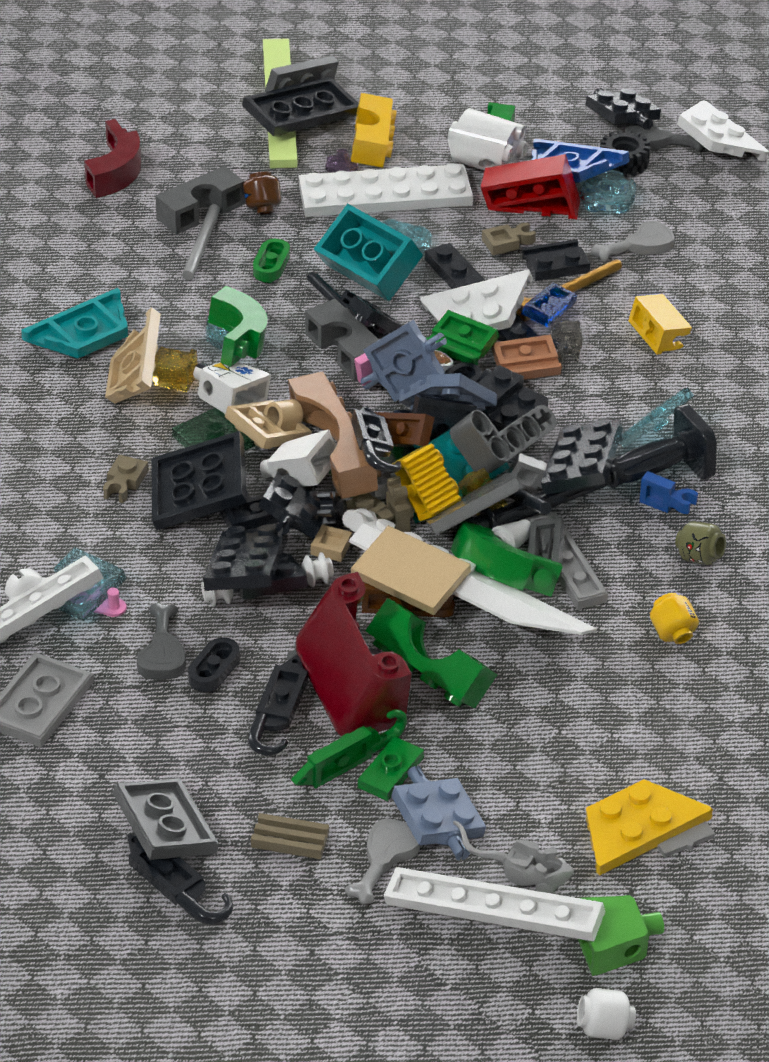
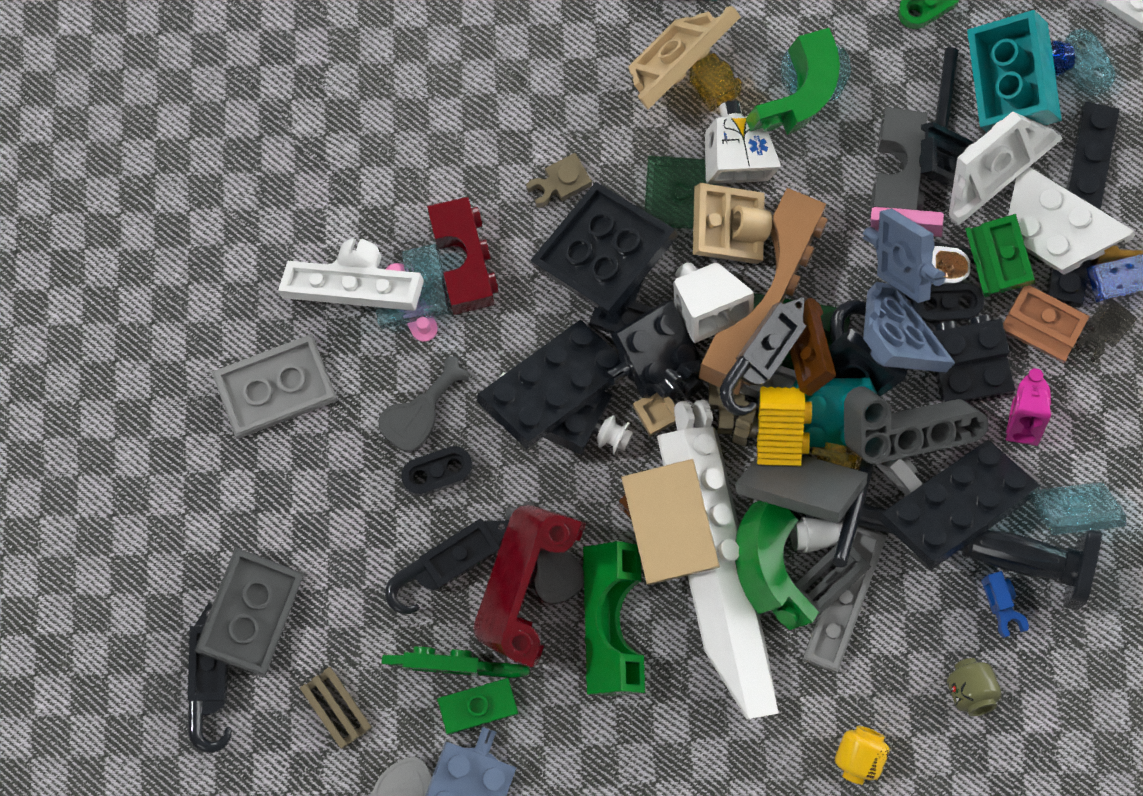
camera: 45 degrees right, 35 degrees up
(96, 536) = (455, 226): none -> dark red arch
(406, 288) = (997, 161): none -> white wing
(571, 395) = (1029, 410): none -> dark pink piece

